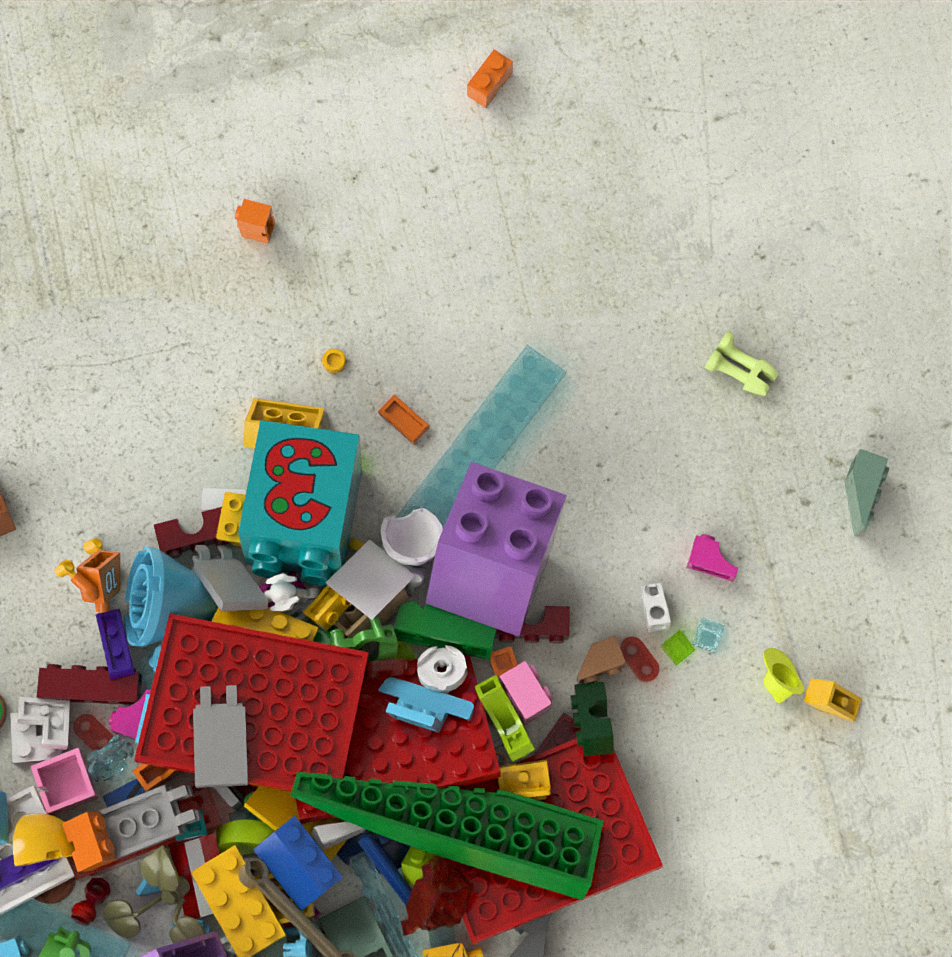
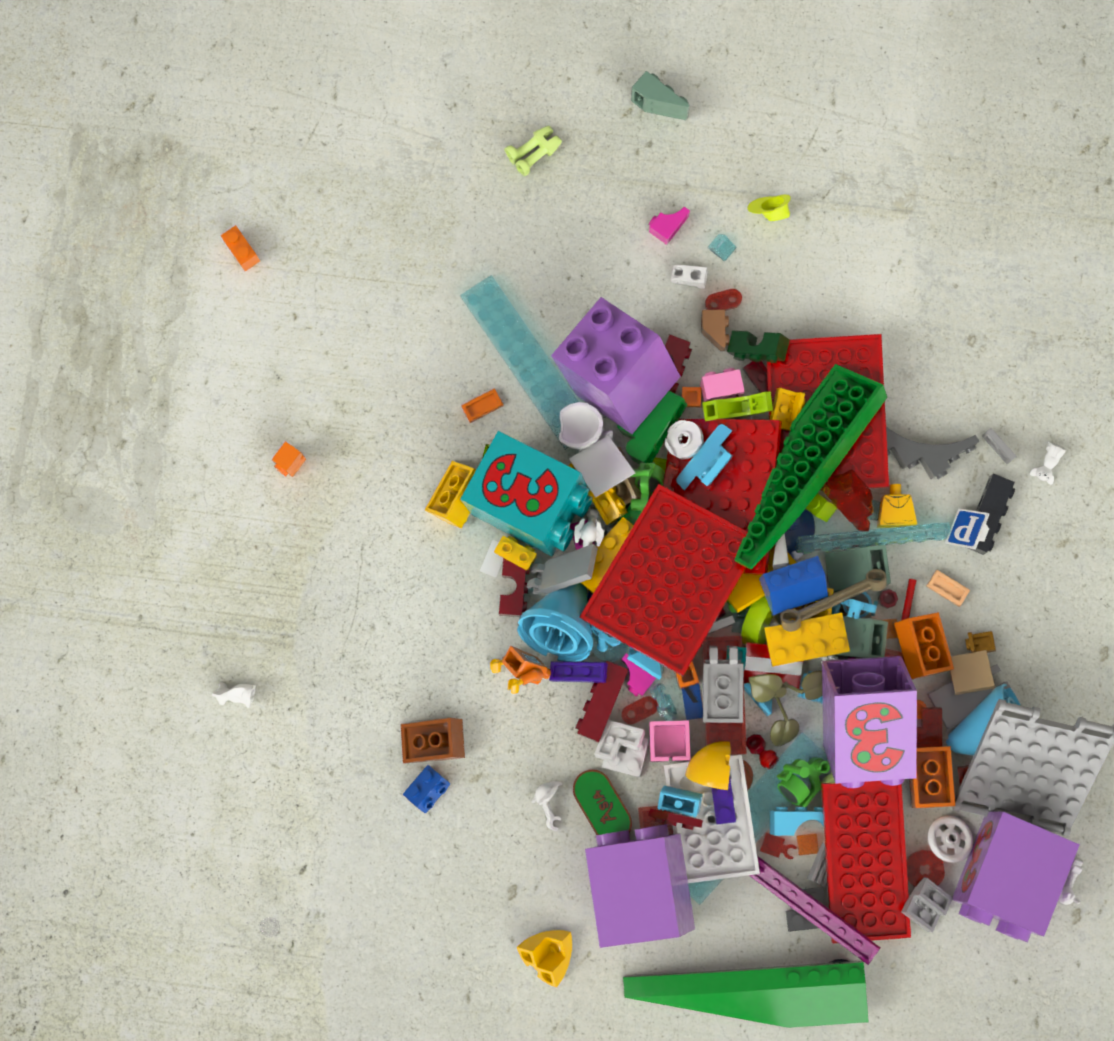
camera: 65 degrees left, 5 degrees up
(90, 841) = (724, 731): orange brick -> none
(220, 741) = (690, 608): light grey tile -> none
(334, 361) = (418, 441): yellow tile -> none
(386, 867) = (818, 527): blue axle -> none
(677, 647) = (723, 271): clear neon green slope -> none
(832, 699) = (799, 178): yellow slope -> none

